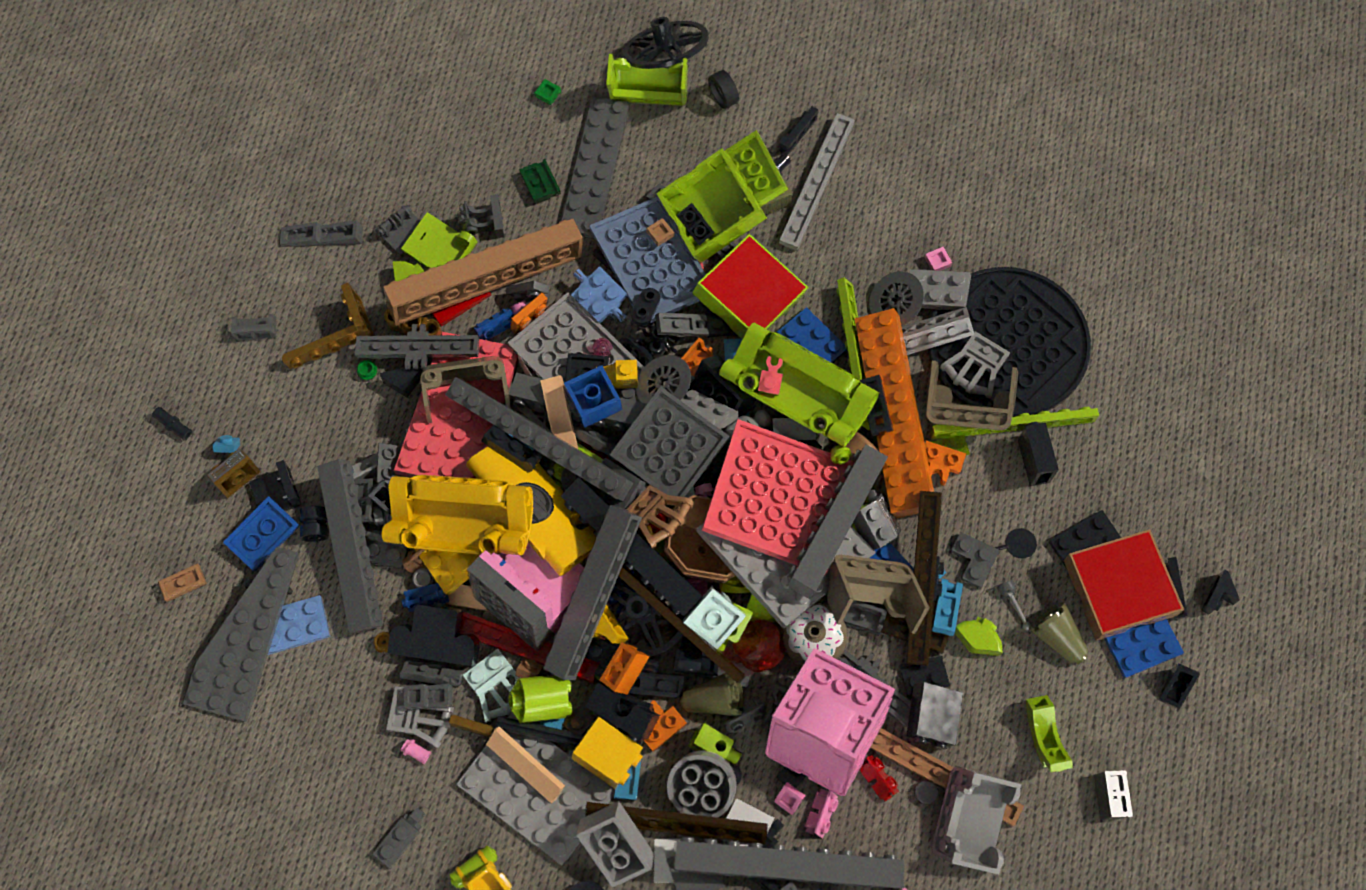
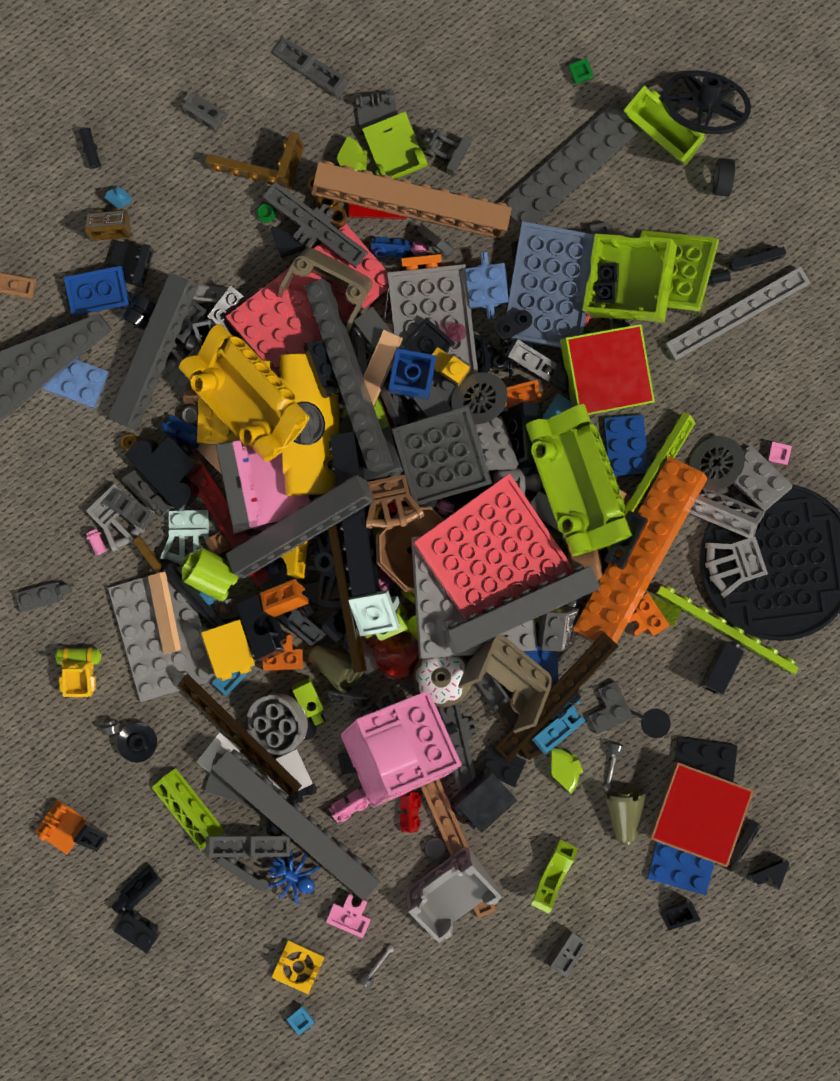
camera: 35 degrees right, 15 degrees up
(539, 181) = (515, 148): dark green plate -> none
(615, 844) = (185, 718): light grey brick -> none
(660, 232) = (572, 269): medium nougat plate -> none
(771, 380) = (559, 460): coral plate -> none
(789, 798) = (334, 778): bright pink plate -> none
(840, 454) = (566, 560): lime plate -> none
(944, 412) = (686, 590): dark tan windscreen -> none

